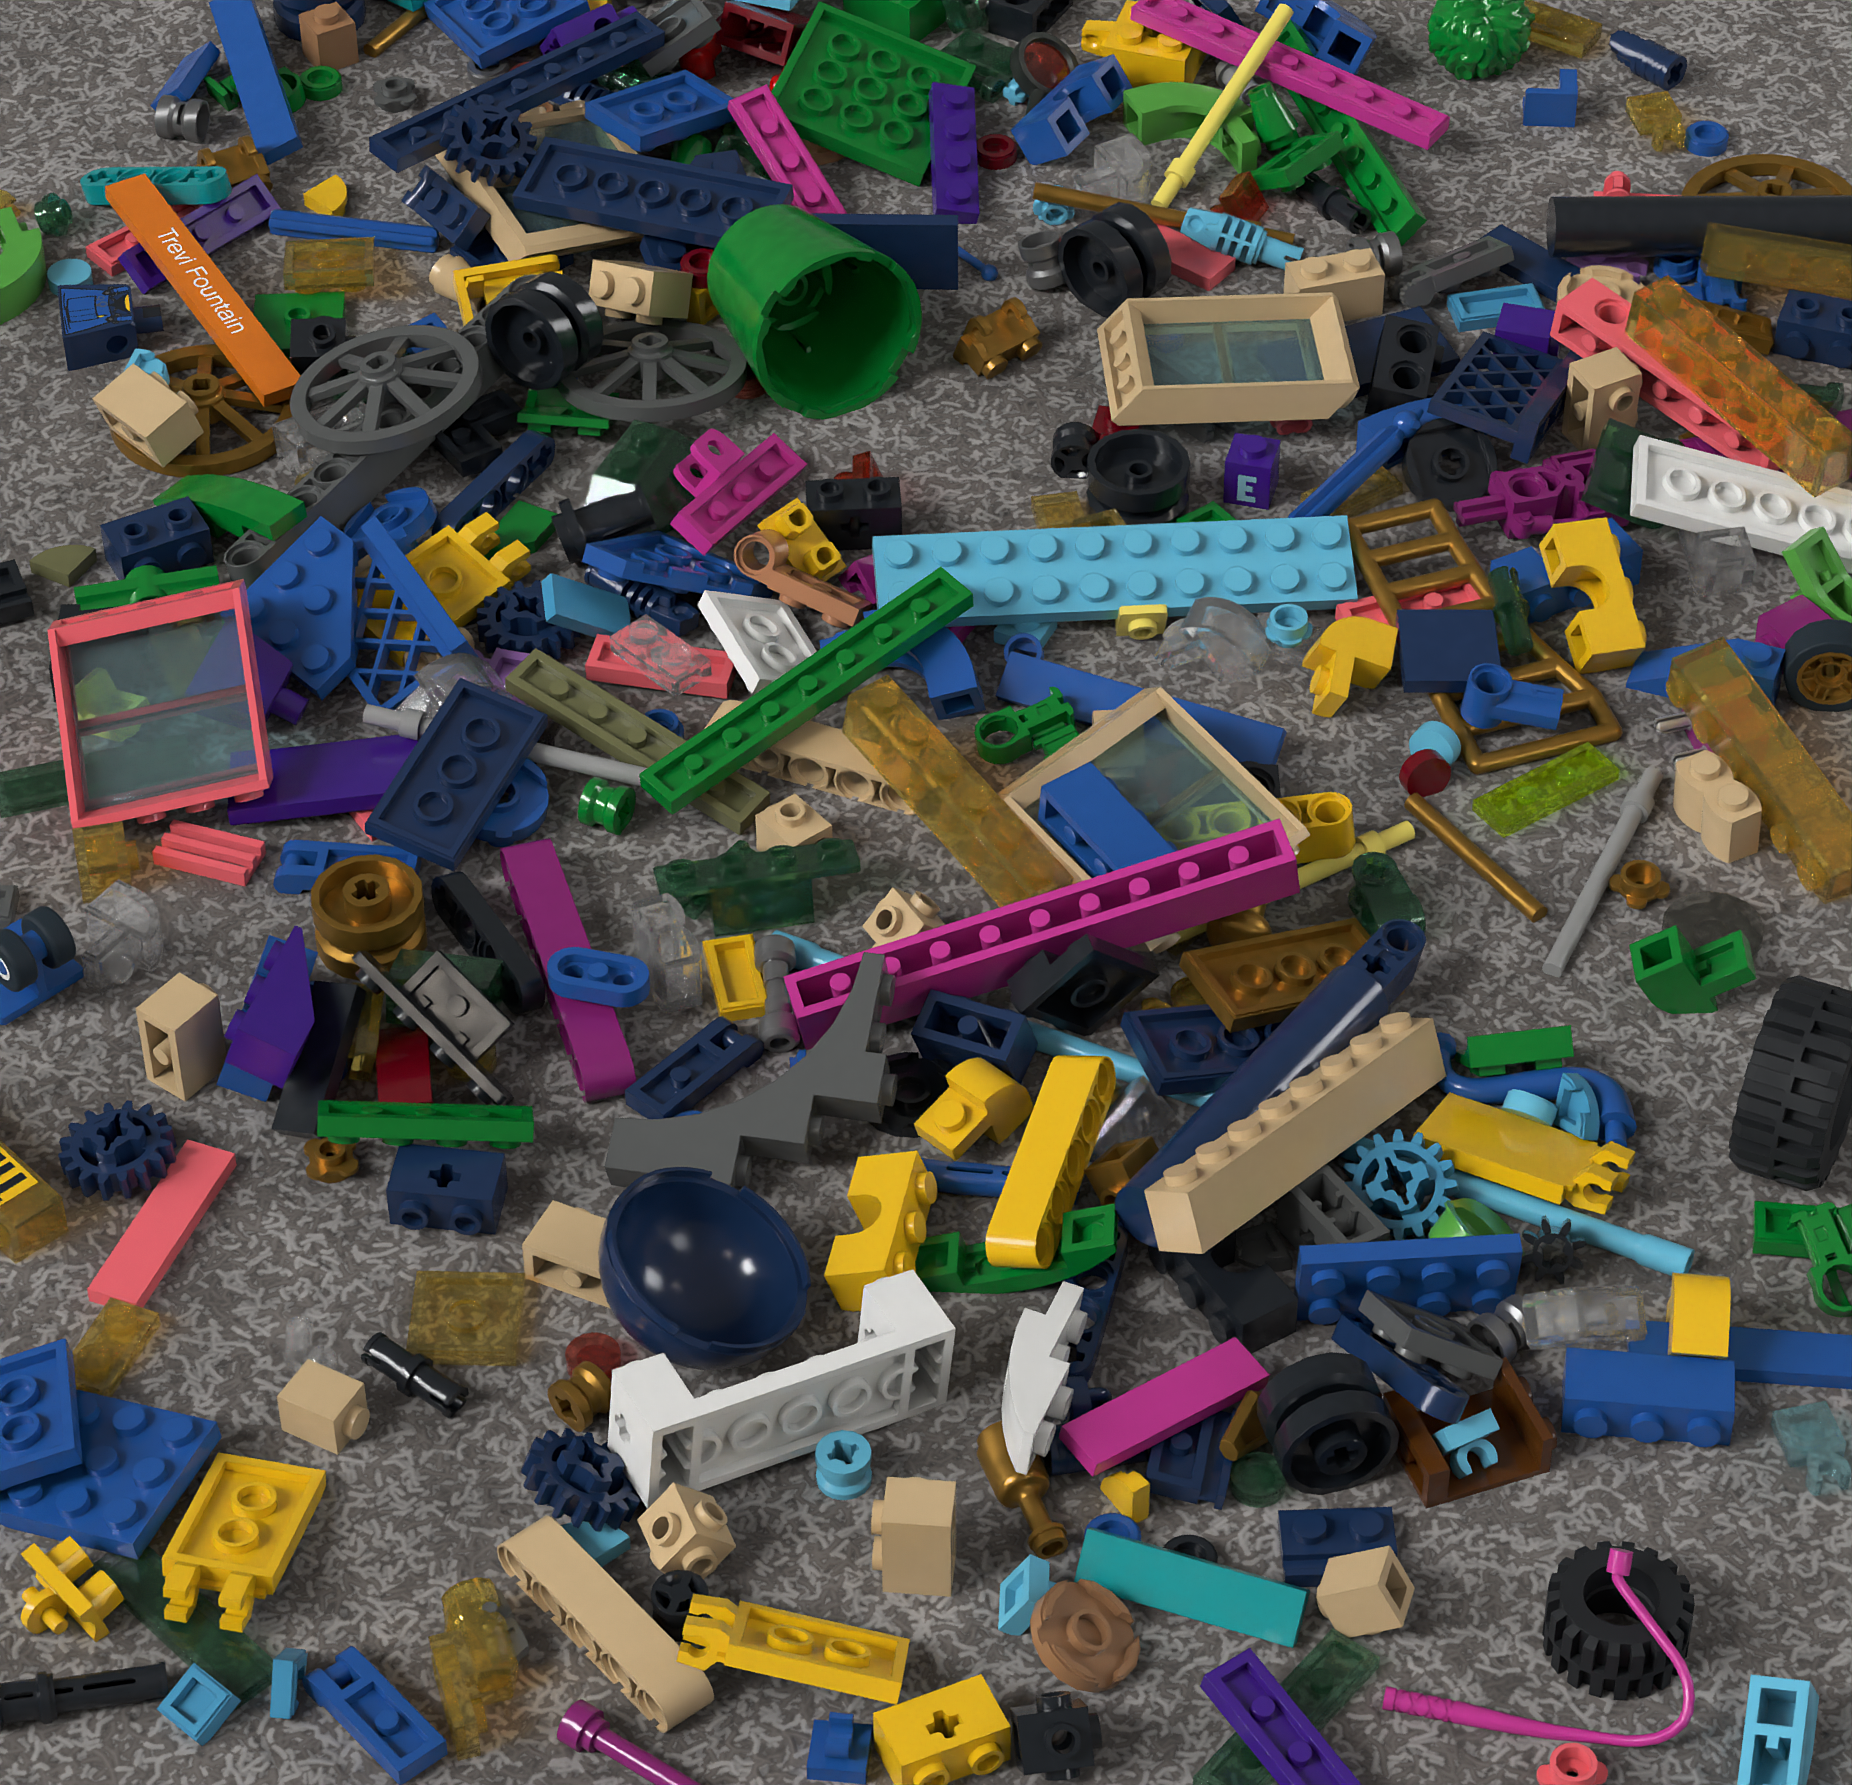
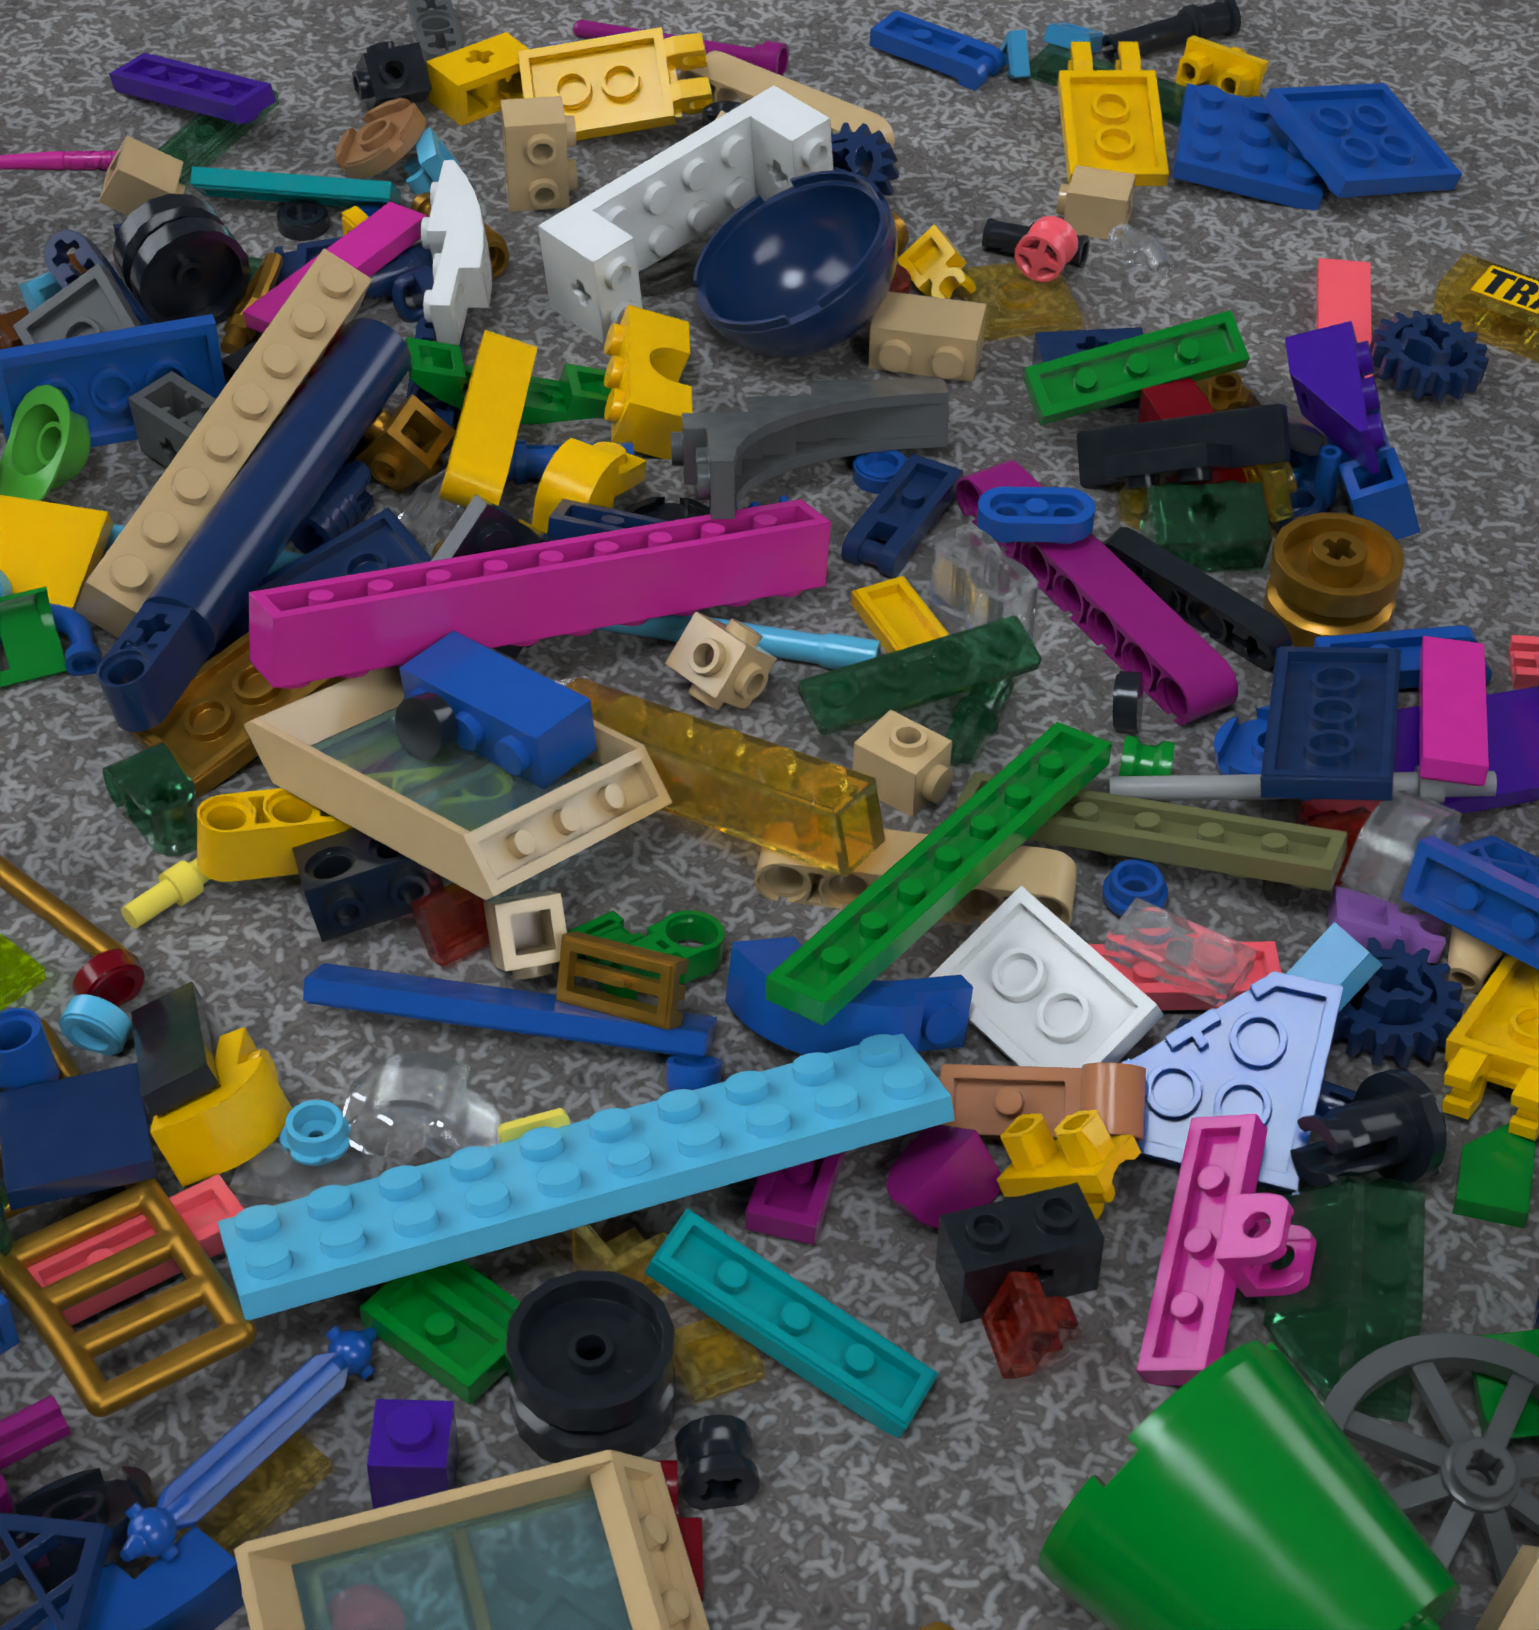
camera: 165 degrees right, 0 degrees up
(112, 1346) = (1317, 232): clear yellow plate -> none
(182, 1036) = (1435, 418): tan brick -> none
(360, 764) = (1452, 711): none -> dark pink tile
(423, 1315) = (1033, 253): none -> coral wheel
(475, 1659) = (876, 72): clear yellow plate -> none
(533, 1351) = (936, 265): none -> yellow plate
(590, 863) = (1128, 701): none -> black tile
(778, 1027) = (860, 609): flat silver piece -> none
(1011, 492) = (792, 1323): none -> teal tile
(1060, 677) = (666, 988): none -> pearl gold tile
(1169, 825) = (426, 726): none -> black tile
(1379, 694) = (173, 1050): none -> black tile
(1417, 1179) = (111, 482): dark azure gear -> none

